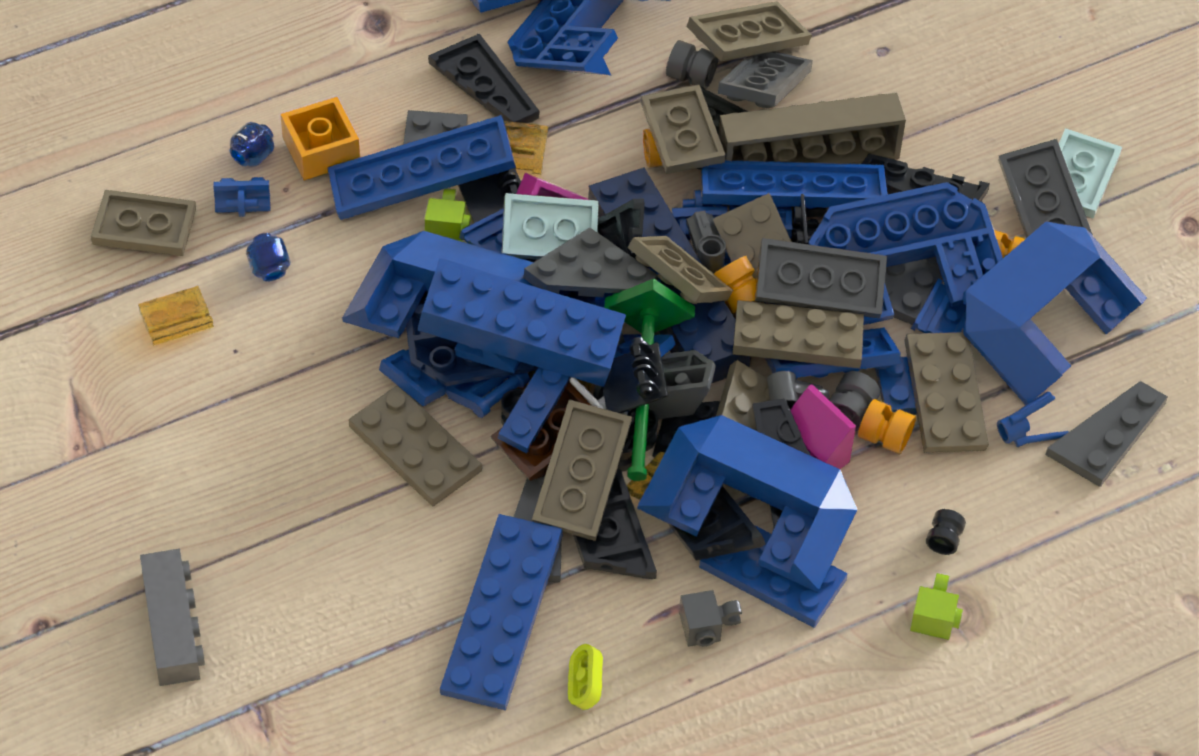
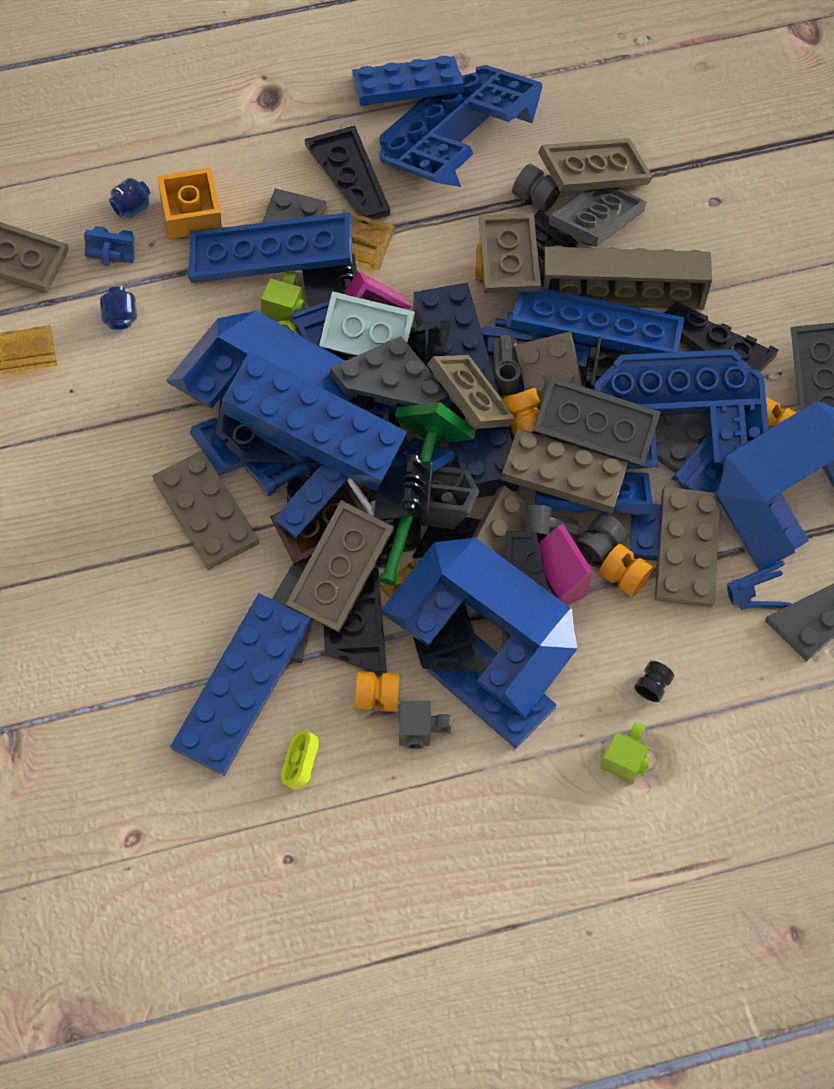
camera: 10 degrees right, 10 degrees up
(652, 592) = (377, 691): none -> light orange wheel

